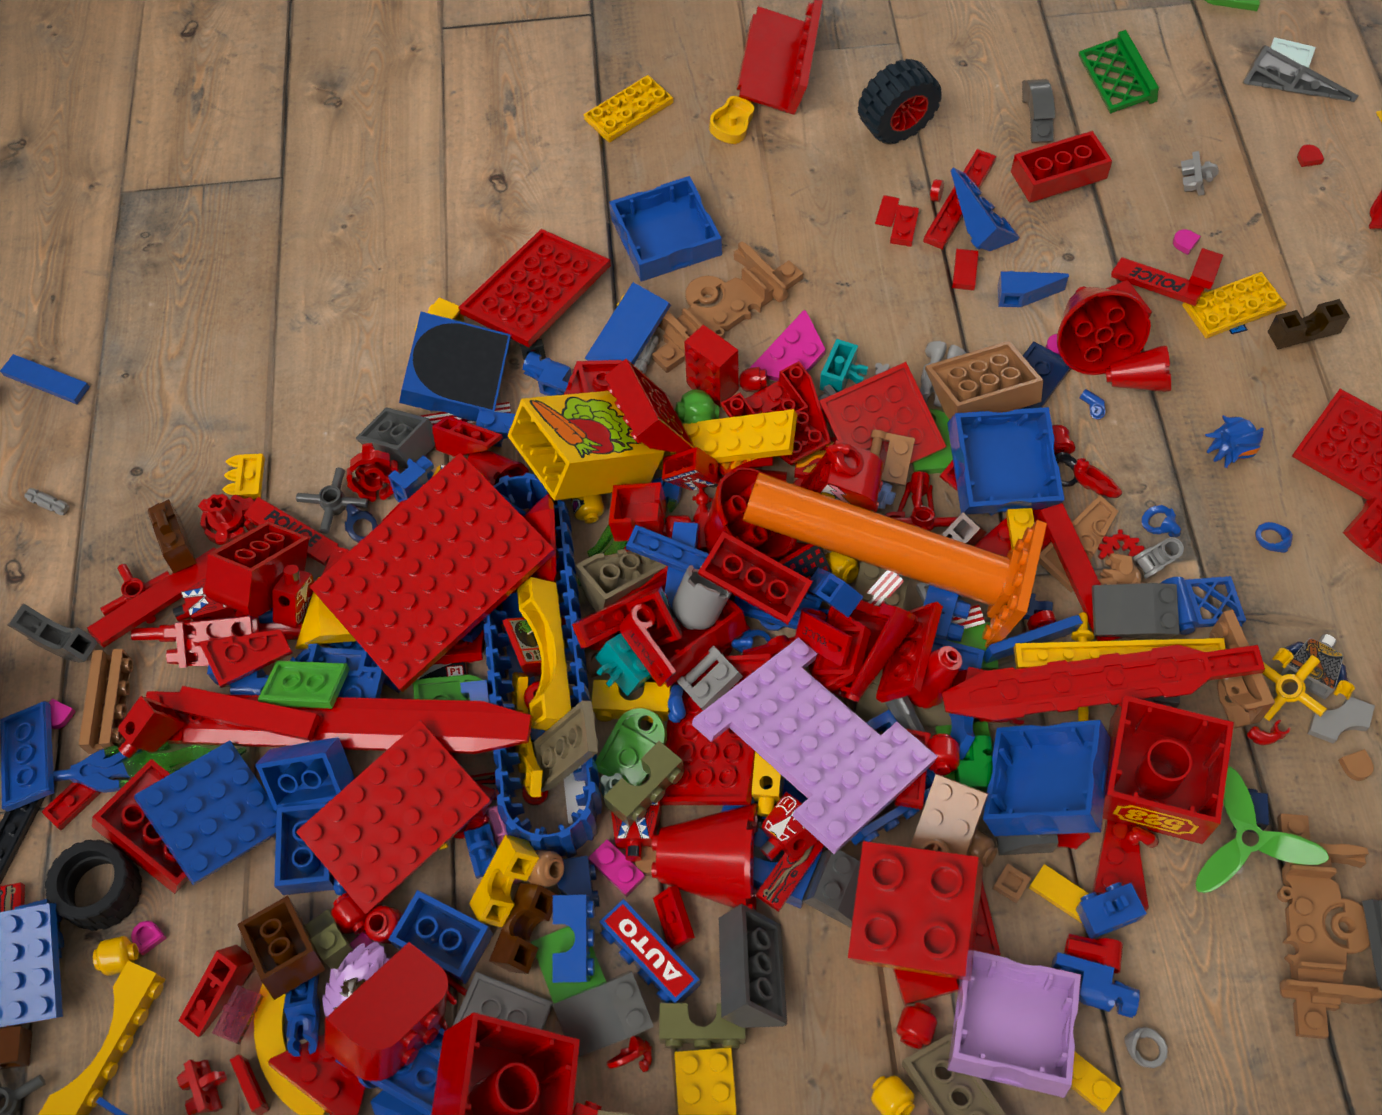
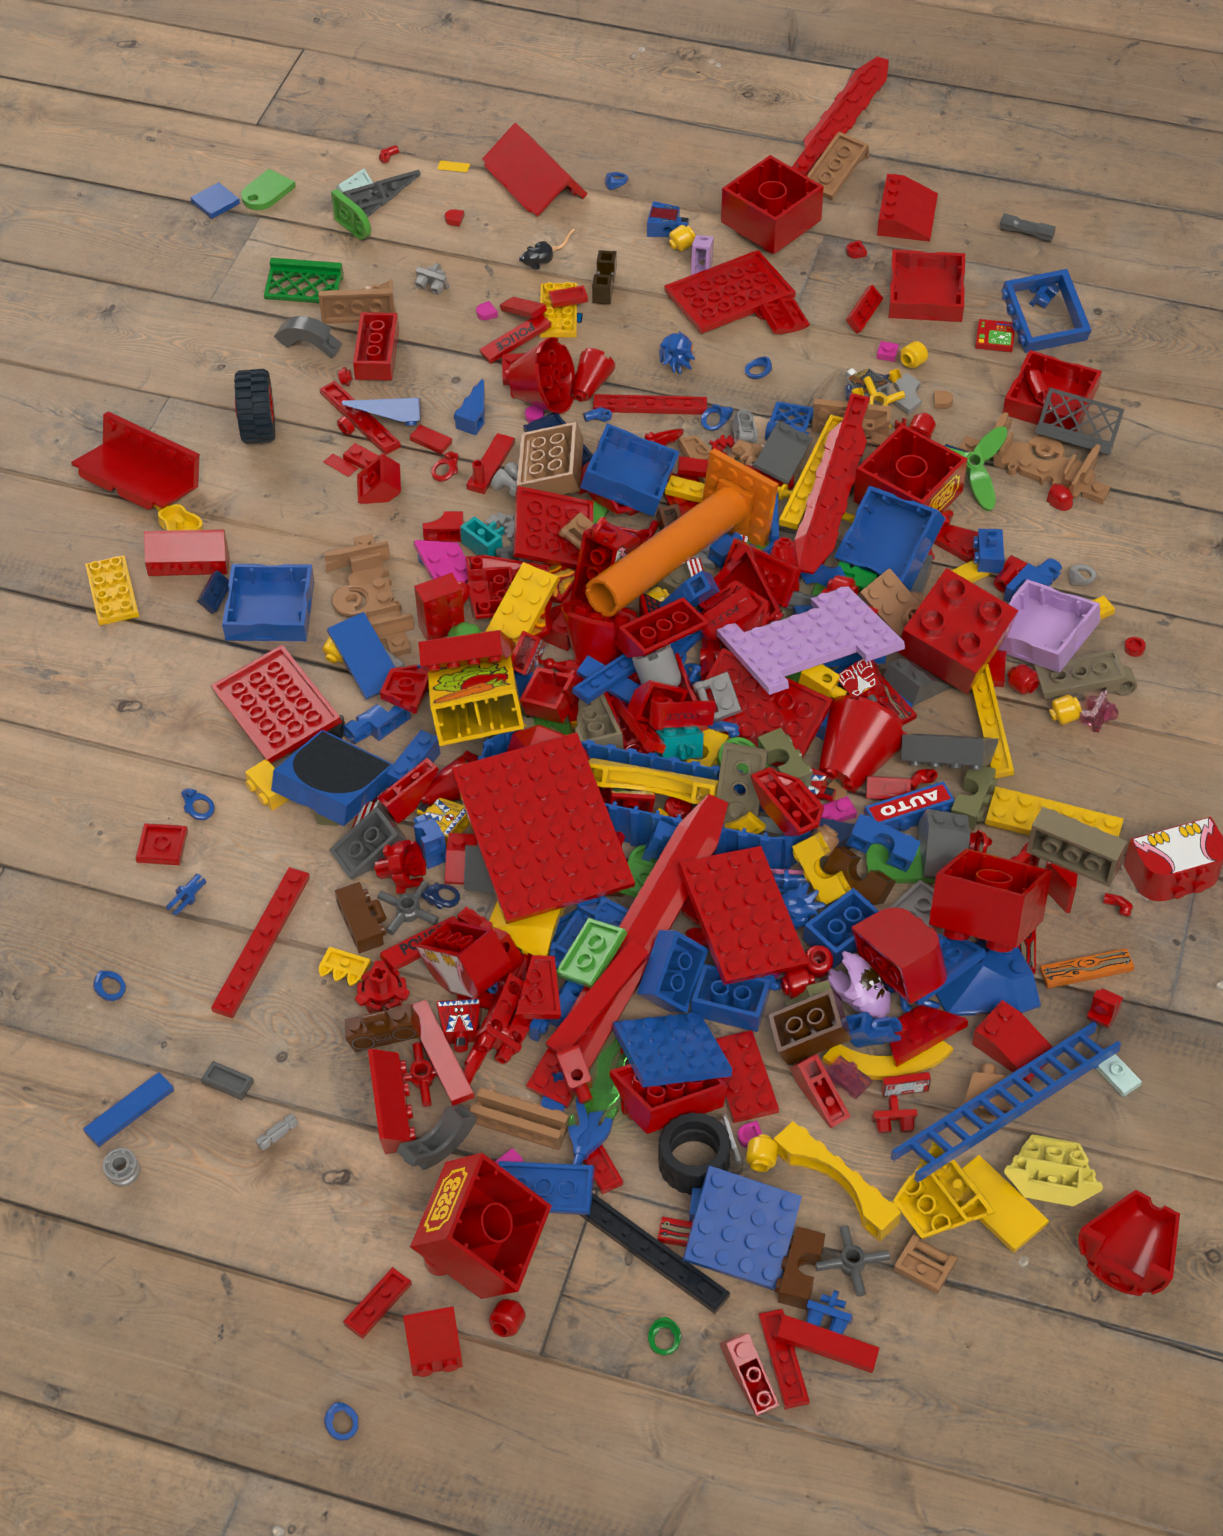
camera: 70 degrees left, 10 degrees down
(80, 574) = (390, 1099): none -> red slope
(95, 439) = (227, 1080): none -> dark grey tile
(129, 917) = (725, 1122): none -> light grey piece
(182, 302) = (100, 991): none -> blue piece
(219, 901) = (749, 1087): none -> red plate
(258, 399) = (260, 943): none -> red plate
(289, 317) = (186, 894): none -> blue arm
(307, 464) = (355, 908): none -> reddish brown piece
(344, 276) = (161, 844): none -> red tile
(398, 270) = (190, 796): none -> blue piece
(449, 873) = (801, 905): none -> blue hair
(545, 806) = (787, 801): none -> red wedge
(653, 179) = (214, 592): none -> dark blue plate
(690, 139) = (186, 552): none -> slope
(710, 951) = (923, 776): none -> red arm
(825, 1010) = (992, 723): none -> yellow plate
(844, 328) = (445, 528): none -> red arch
(876, 250) = (379, 481): none -> red slope
(939, 299) = (452, 461): none -> red piece
(961, 333) = (490, 463): none -> red piece
(1004, 161) = (345, 376): none -> red plate
(1110, 129) = (347, 305): none -> medium nougat plate
(1145, 449) = (651, 404): none -> red tile
(1235, 63) = (350, 215): none -> bright green tile
(1252, 302) = (568, 296): none -> red tile
(1268, 974) = (1060, 497): none -> red piece
(1286, 756) = (923, 424): none -> red head
(1307, 253) = (541, 253): none -> black animal
(1362, 59) = (386, 153): none -> red arm

